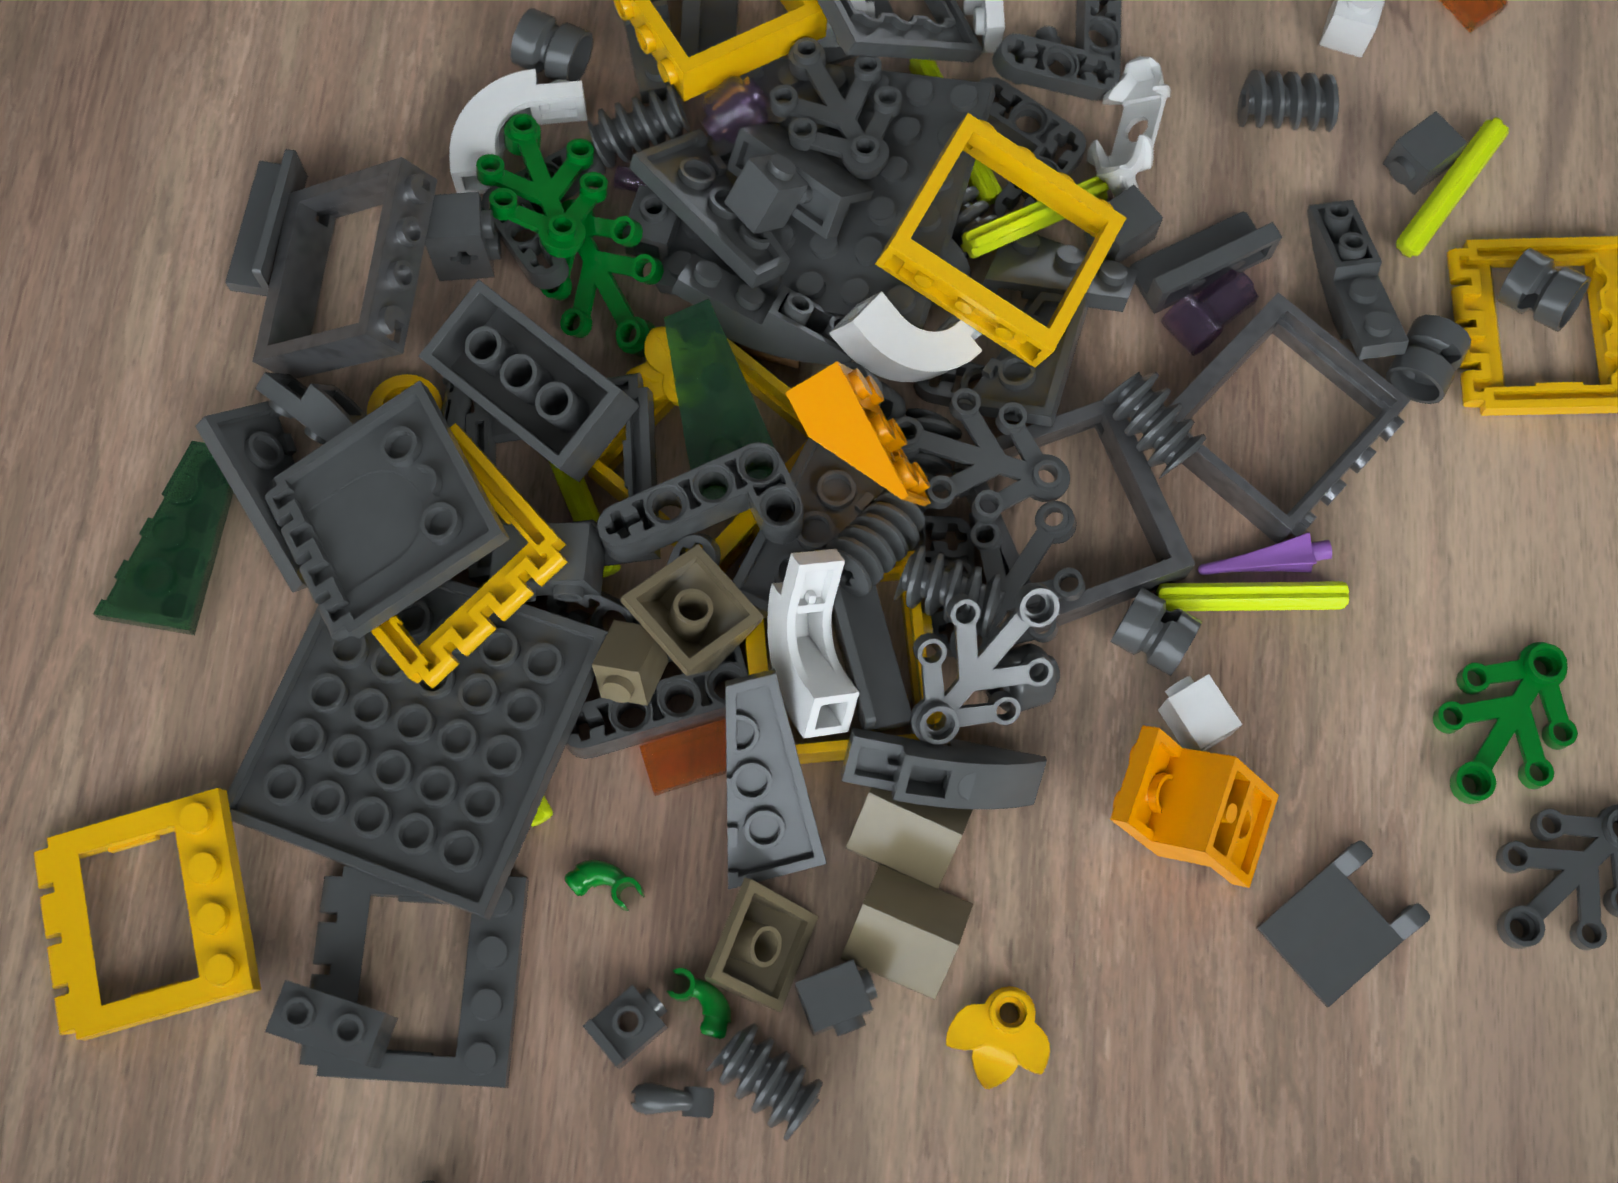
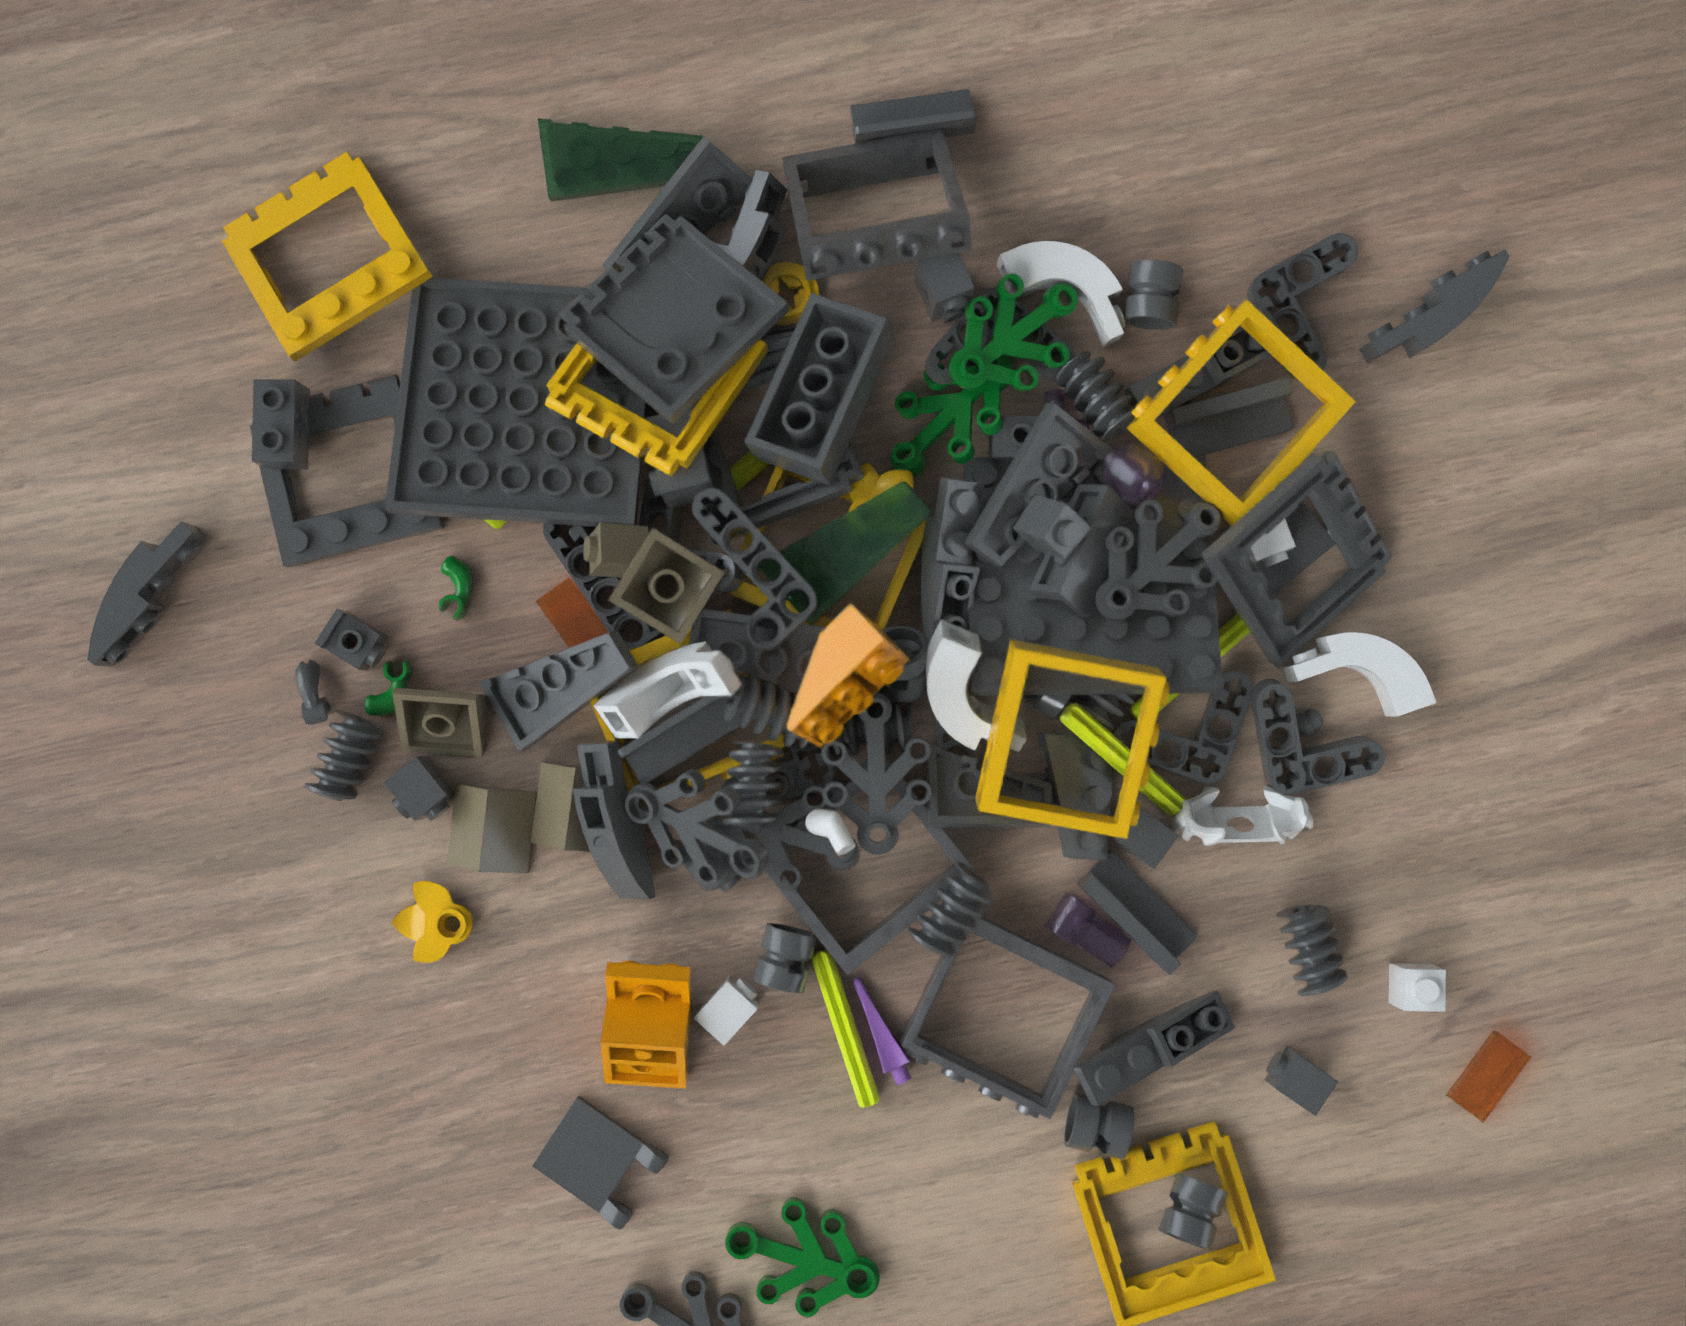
camera: 75 degrees right, 15 degrees up
(1021, 520) = (830, 825): none -> white arm
(1452, 187) = (1278, 1112): neon yellow axle -> none

